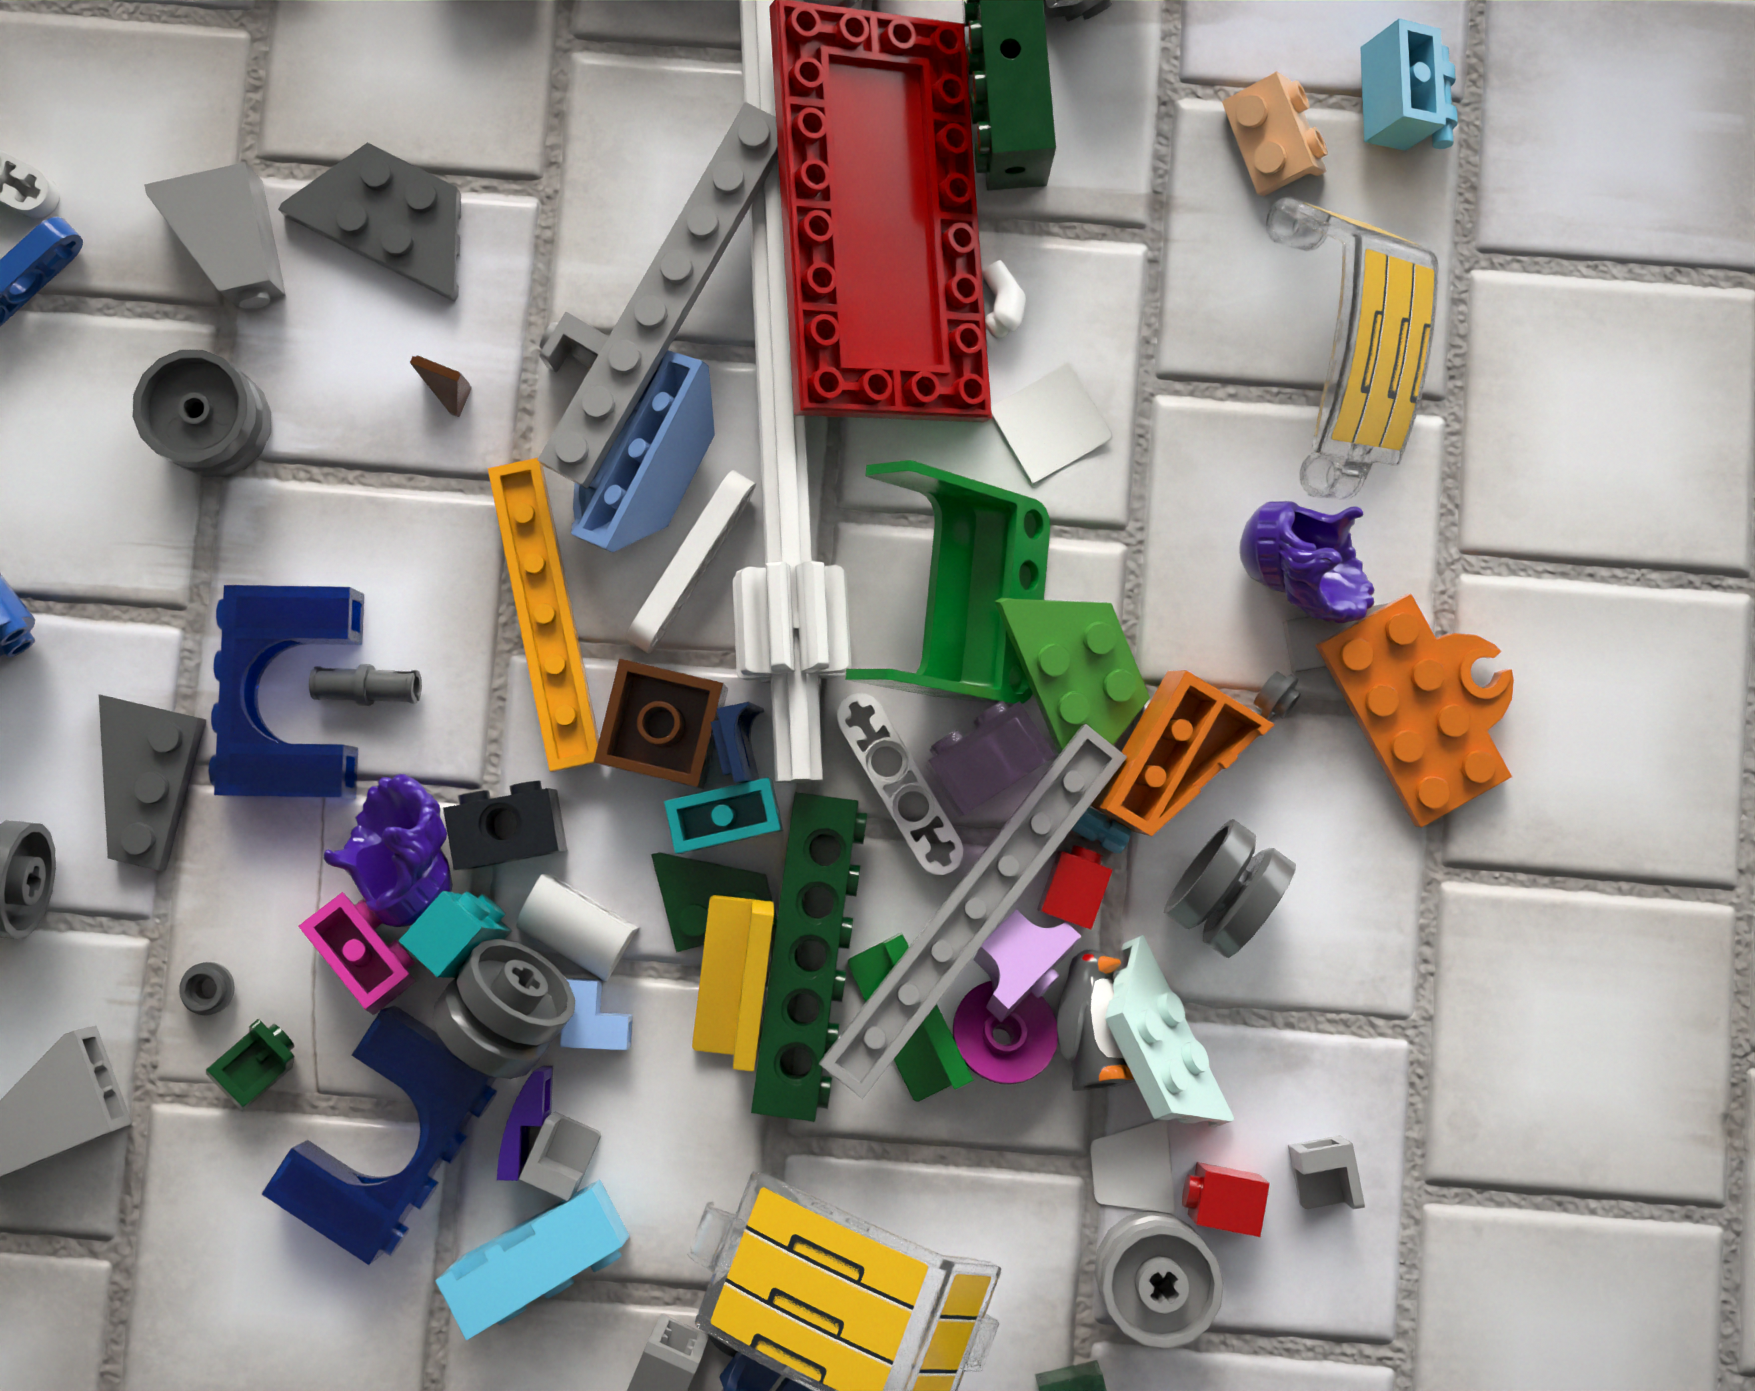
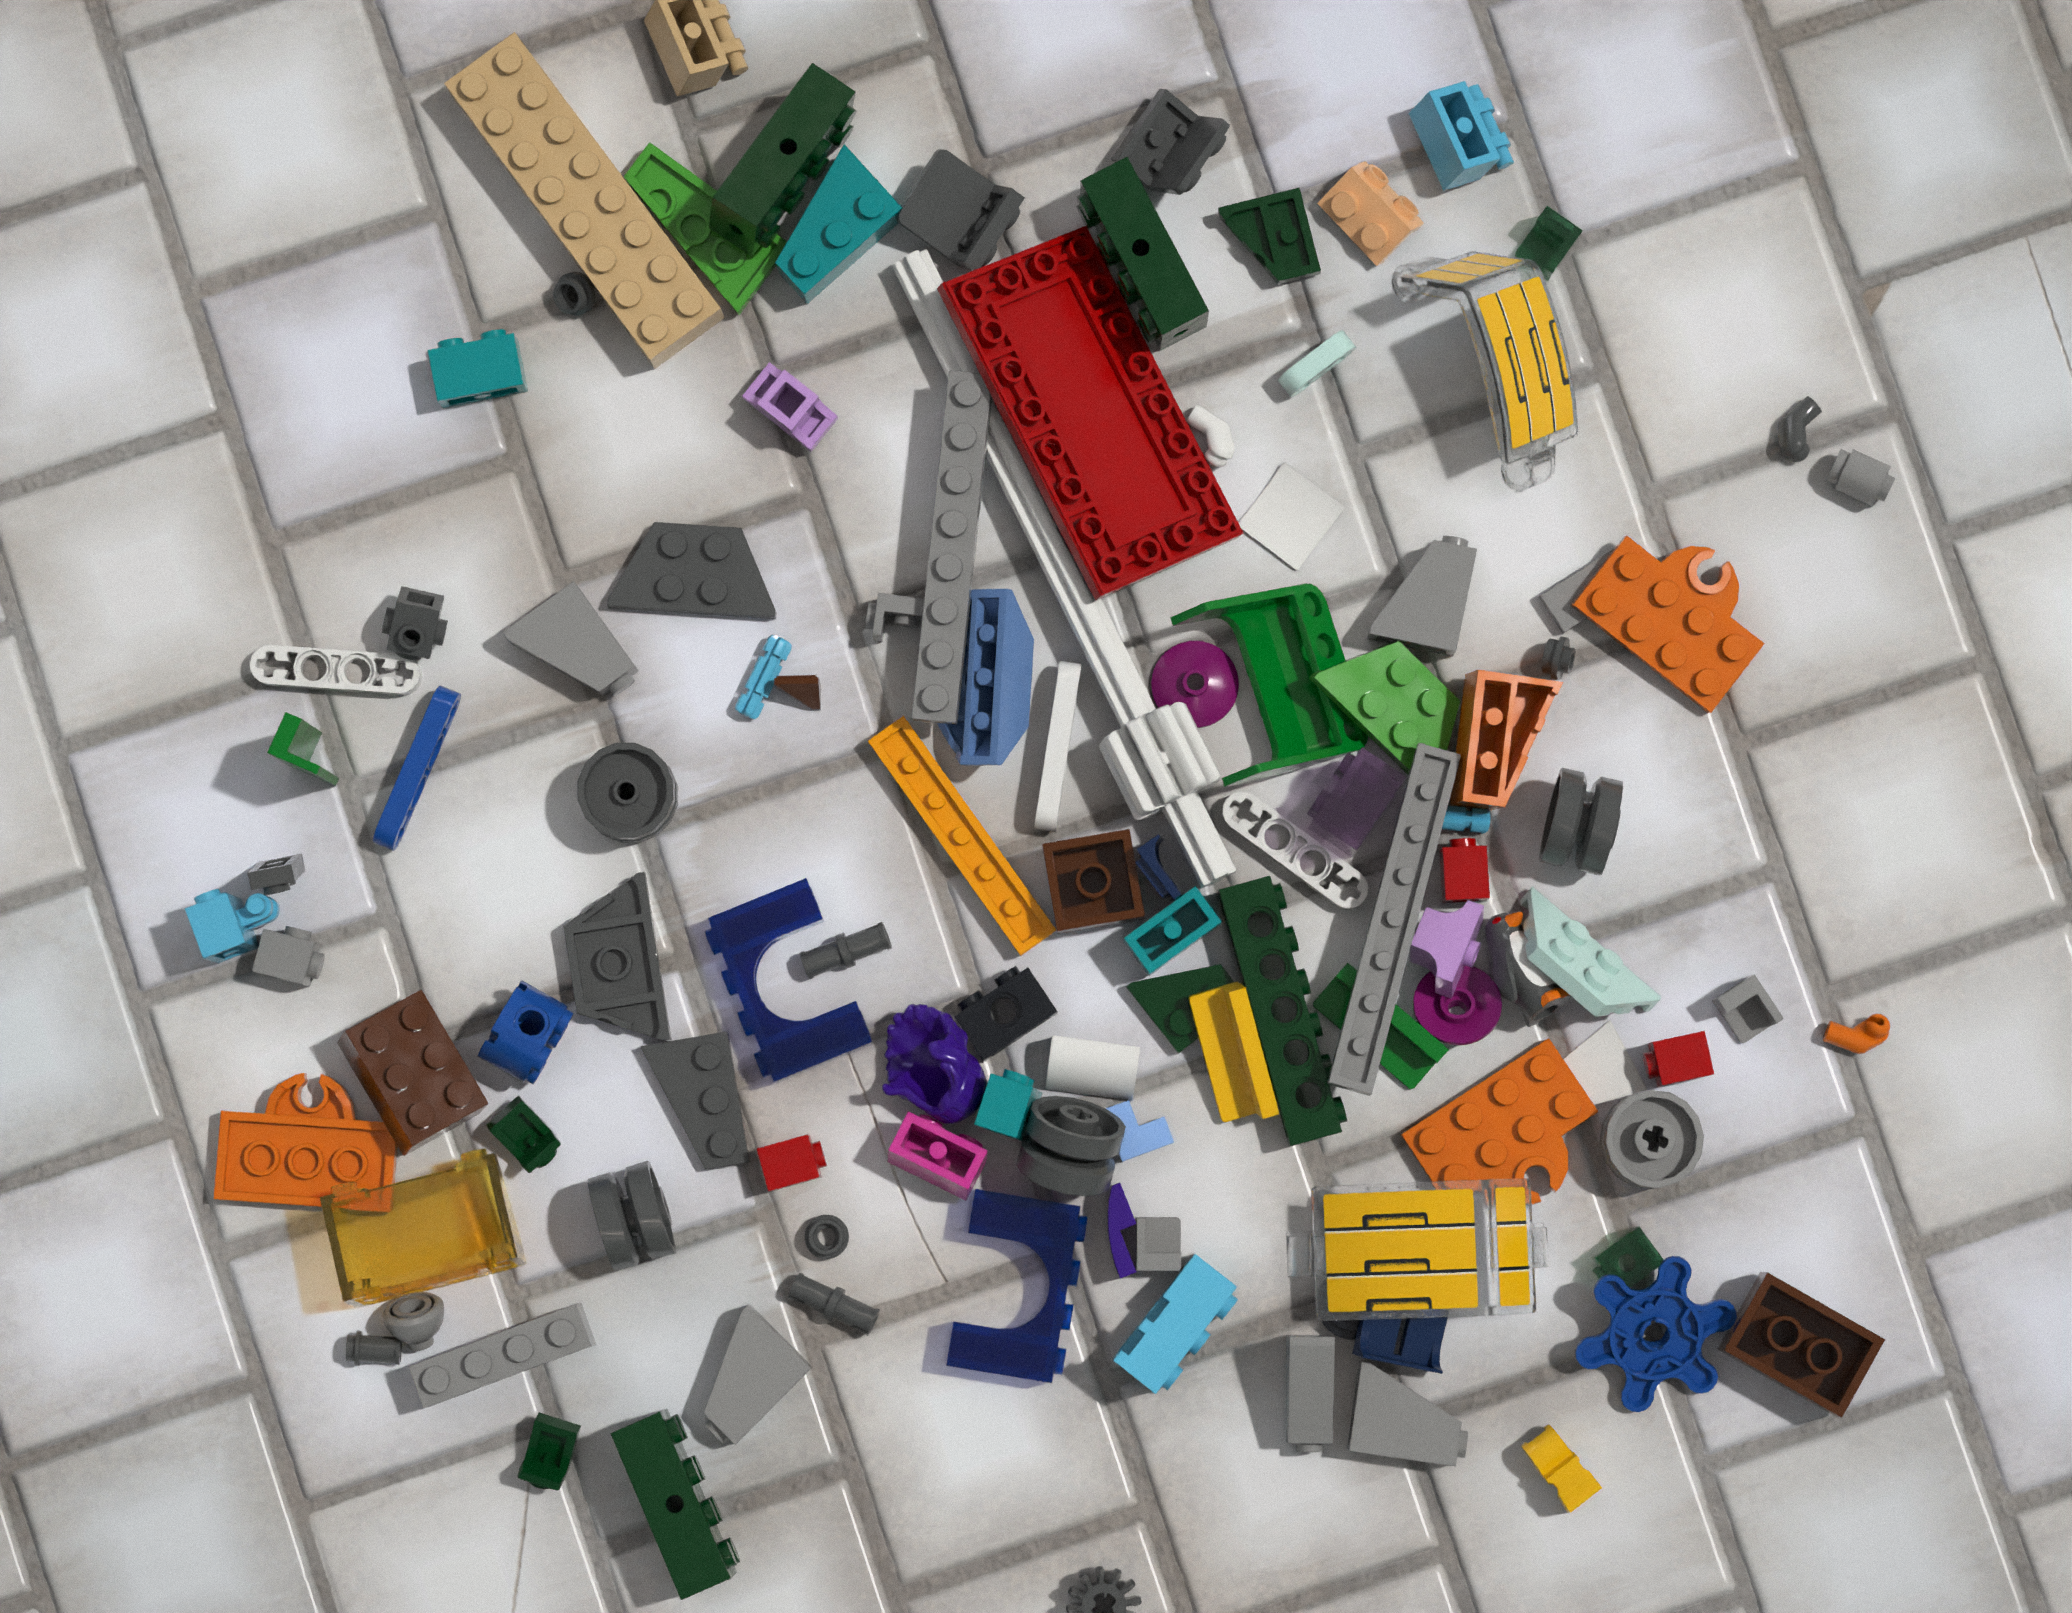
camera: 20 degrees left, 0 degrees up
(60, 138) = (415, 624): none -> dark grey brick
(117, 593) = (618, 962): none -> dark grey wing
(179, 1066) = (833, 1304): none -> dark grey pin
(200, 891) = (791, 1162): none -> red brick
(253, 1064) = (891, 1275): dark green bracket -> none
(384, 377) = (762, 676): none -> medium azure axle
(566, 81) = (790, 406): none -> lavender brick
(899, 561) = (1201, 659): none -> magenta dish
(999, 1189) = (1506, 1124): none -> orange plate
(1149, 269) = (1316, 363): none -> light aqua beam
(1162, 114) = (1275, 234): none -> dark green wing
(1163, 574) = (1430, 601): none -> light grey slope
(1308, 559) = (1537, 542): dark purple hair -> none
(1438, 1259) = (1861, 1037): none -> orange arm
(1461, 241) = (1549, 241): none -> clear green panel
(1638, 556) = (1793, 431): none -> dark grey arm
(1694, 639) = (1861, 477): none -> light grey brick

